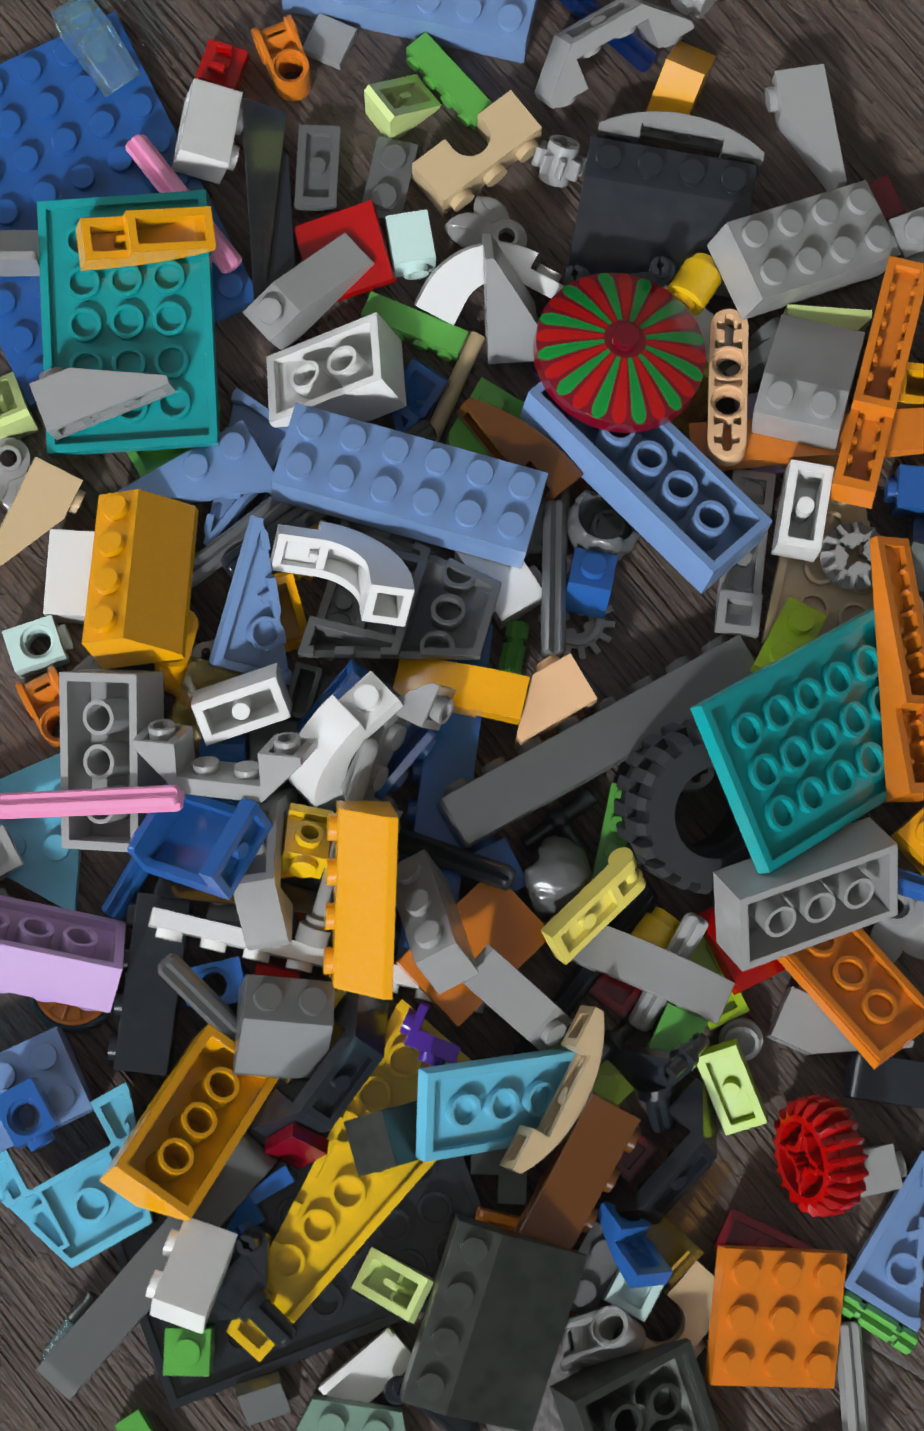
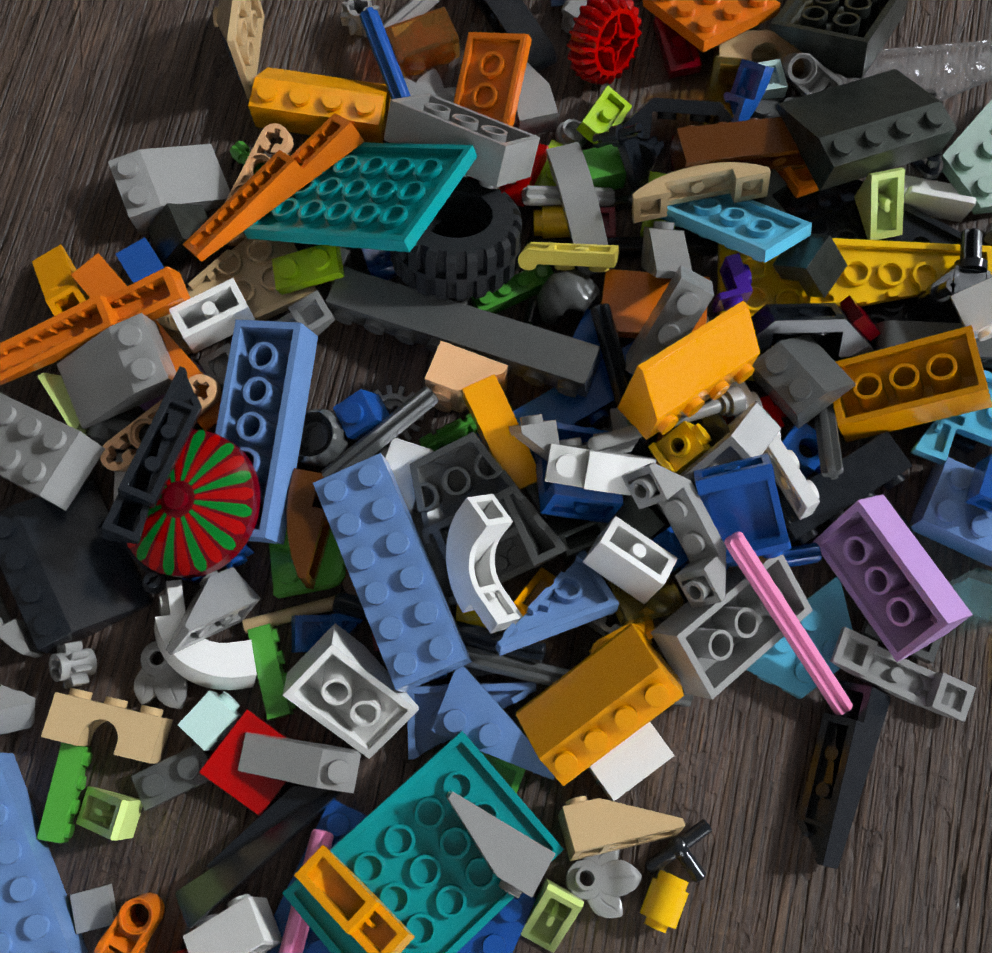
camera: 125 degrees left, 5 degrees down
(19, 641) = (711, 748): light aqua brick -> none
(43, 702) = (729, 705): orange piece -> none
(249, 1212) = (889, 311): blue slope -> none
(317, 167) = (200, 835): dark grey plate -> none
(679, 345) = (153, 462): none -> black wedge
(696, 282) = (95, 500): yellow brick -> none
(834, 557) = (229, 261): light grey gear -> none

